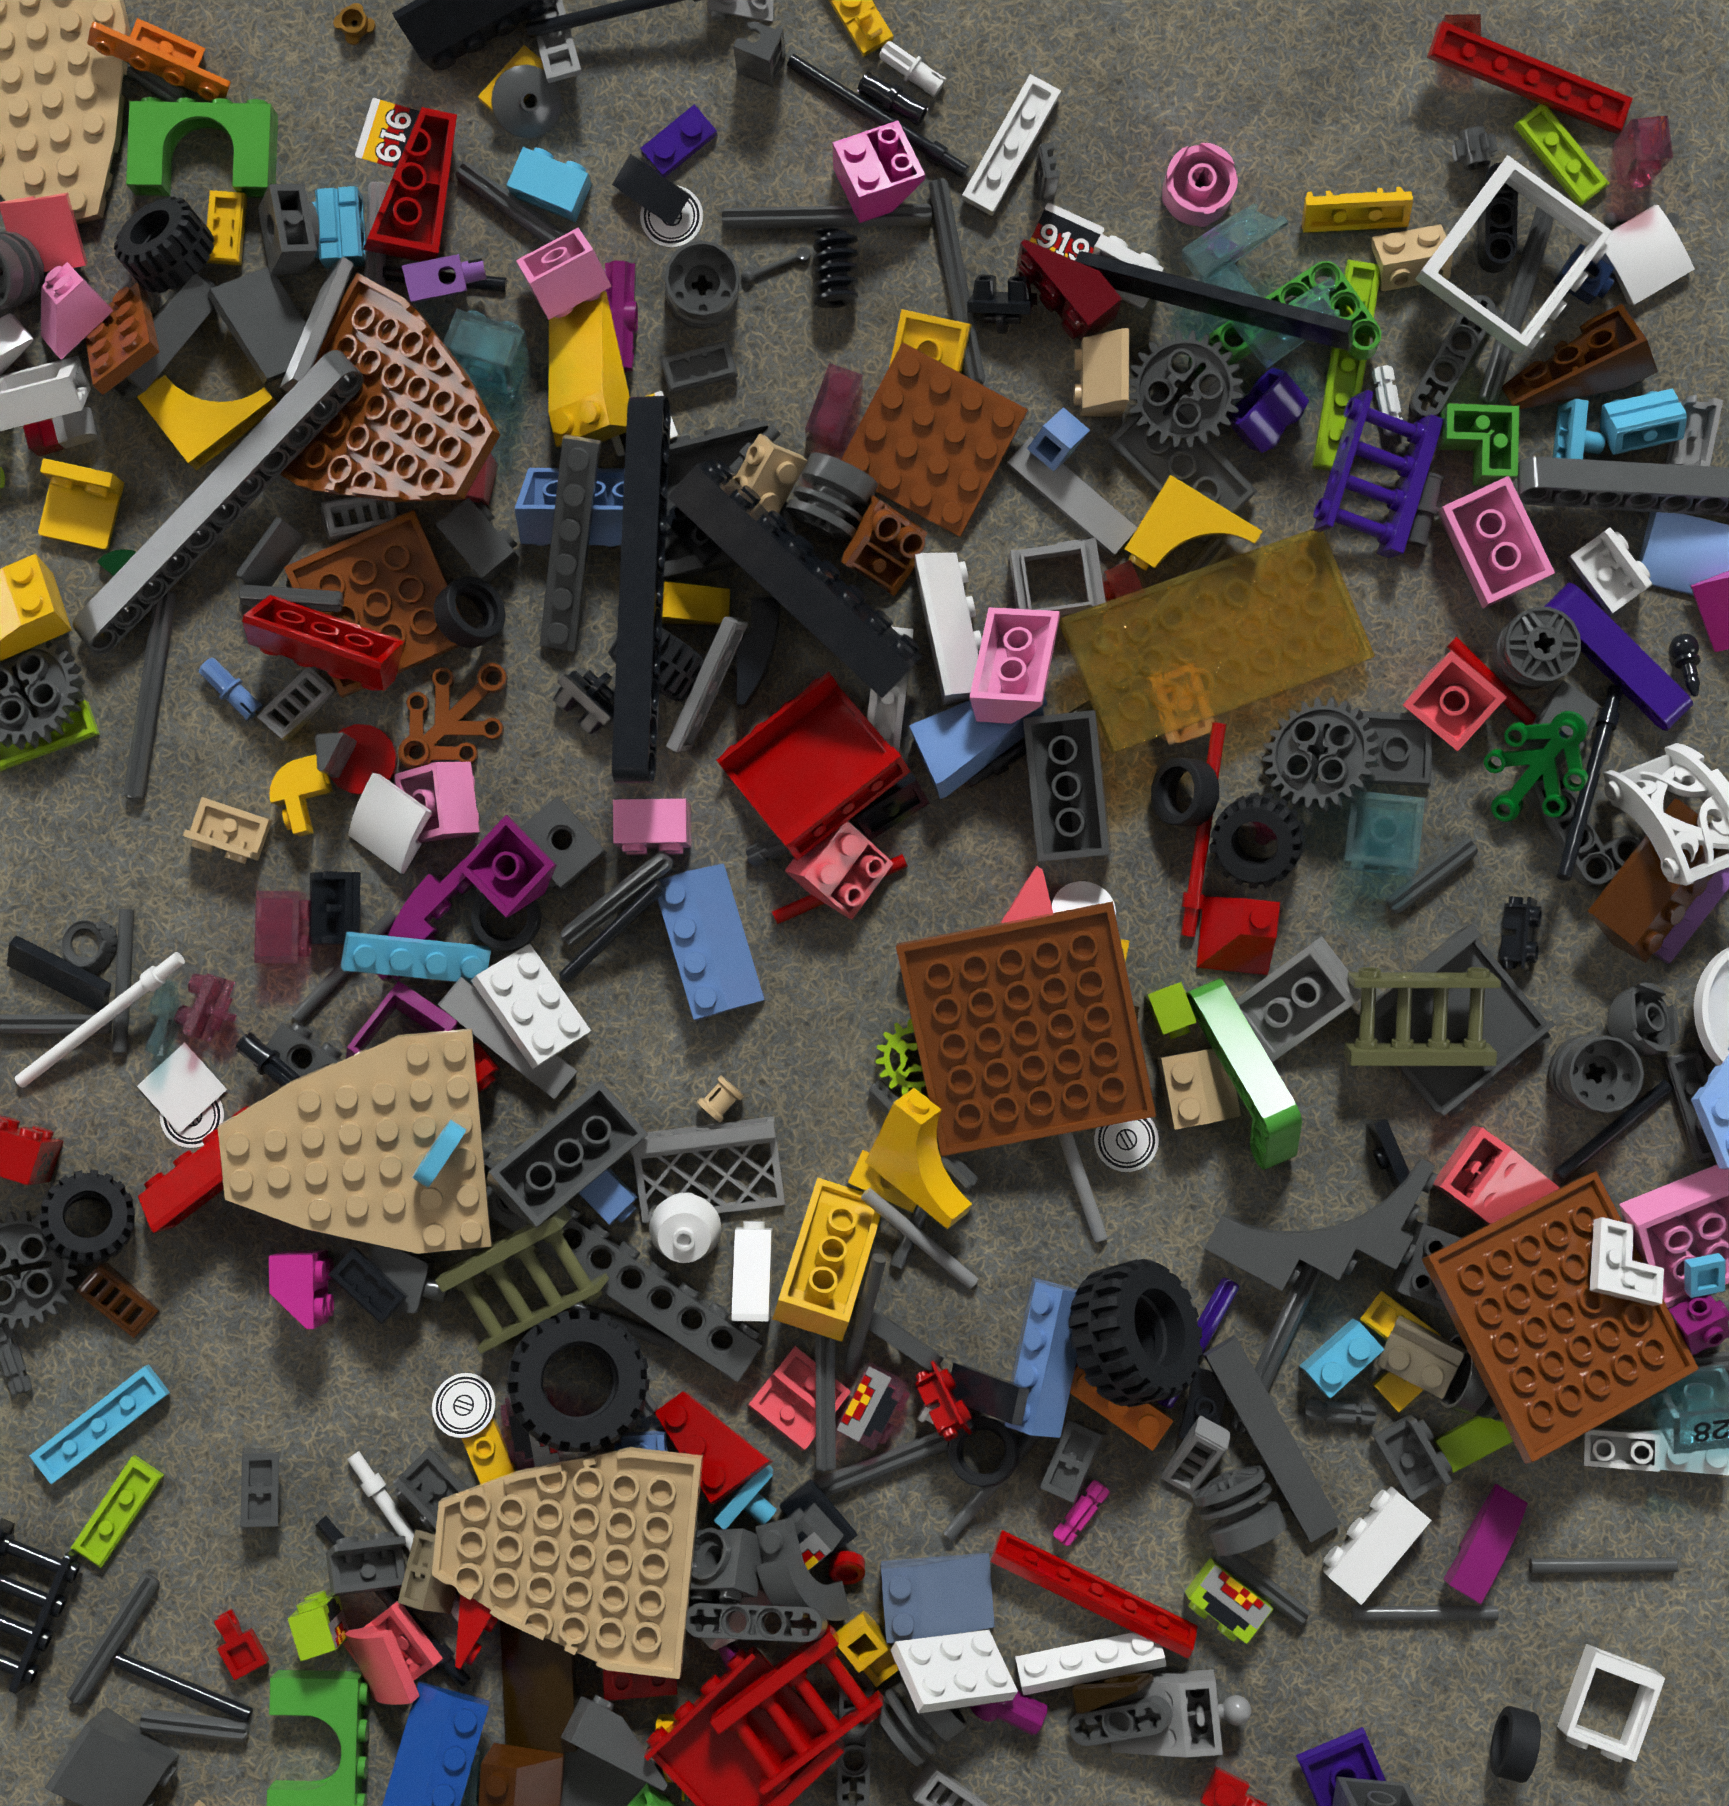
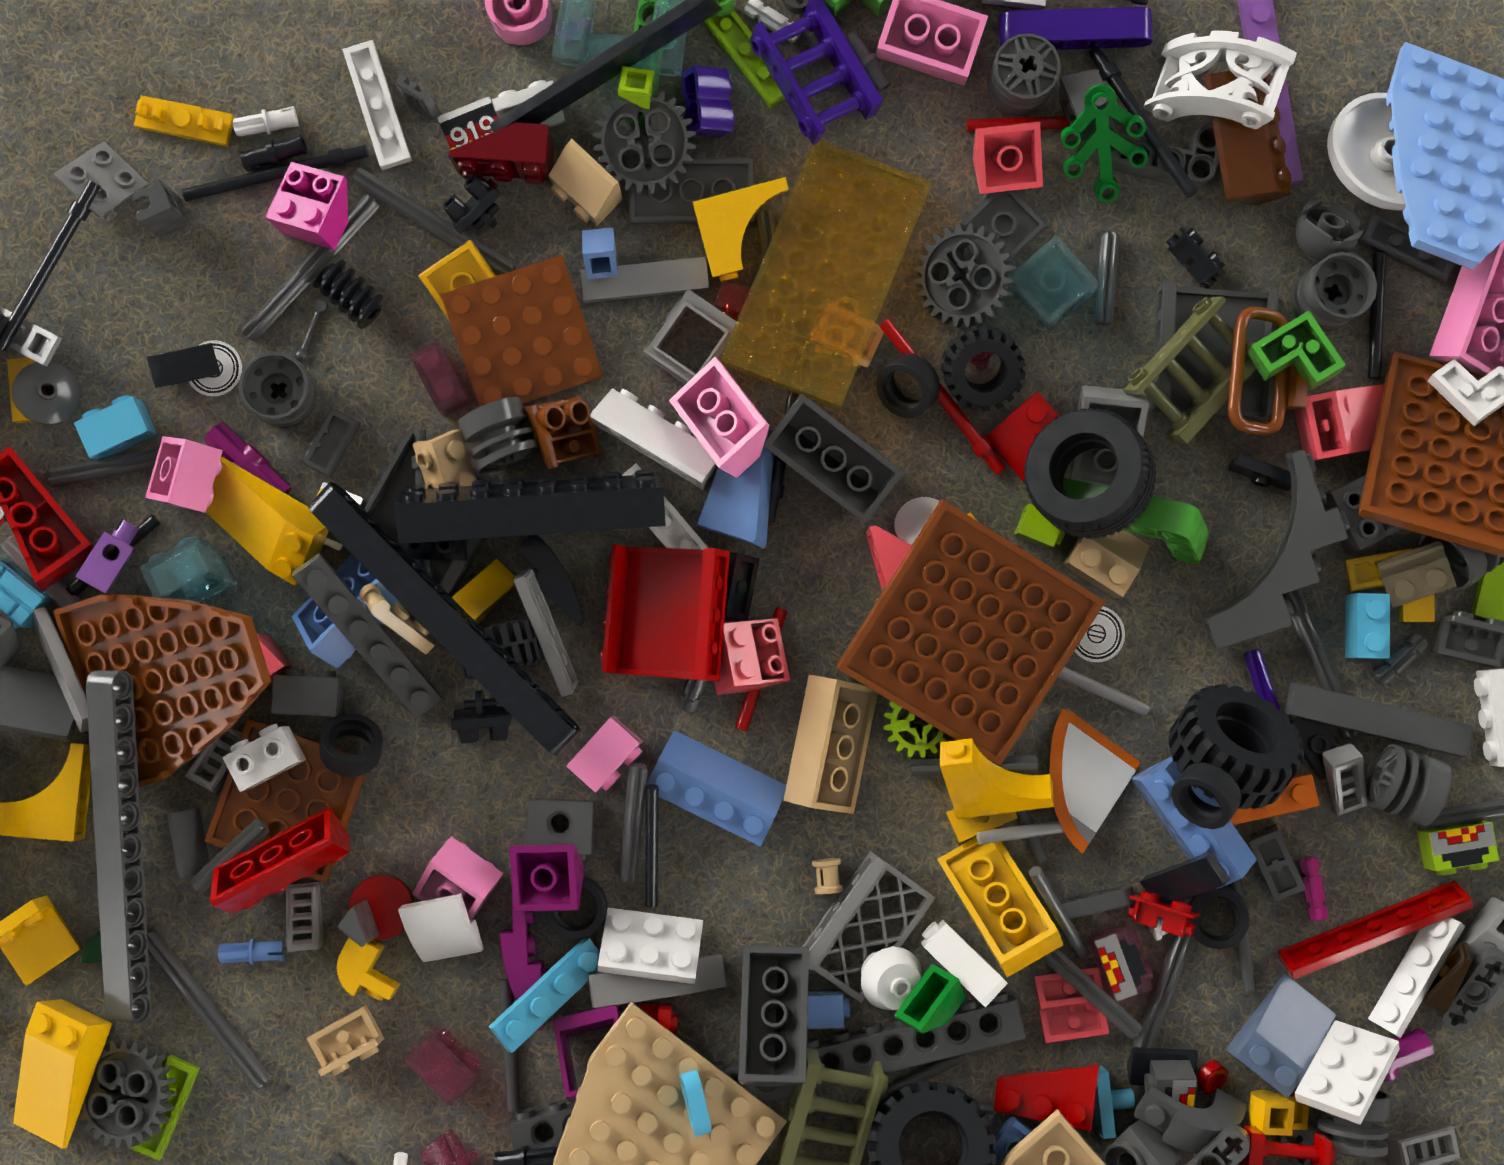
camera: 55 degrees left, 0 degrees up
(333, 906) = (463, 1017): black hinge -> none
(395, 551) = (263, 758): none -> white brick
(449, 720) = (409, 825): dark orange plant -> none
(605, 553) = (396, 618): none -> tan plate
(678, 141) = (168, 317): dark purple plate -> none
(697, 1274) = (932, 1001): none -> green slope
(830, 1002) = (830, 745): none -> tan slope
(998, 1238) = (1086, 777): none -> white sticker
(1087, 1336) = (1218, 783): none -> black tyre
(1221, 340) = (636, 86): none -> lime slope
(1239, 962) = (1064, 441): none -> black tyre
(1491, 1098) = (1289, 387): none -> dark orange bar
(1517, 1077) = (1299, 344): none -> bright green brick

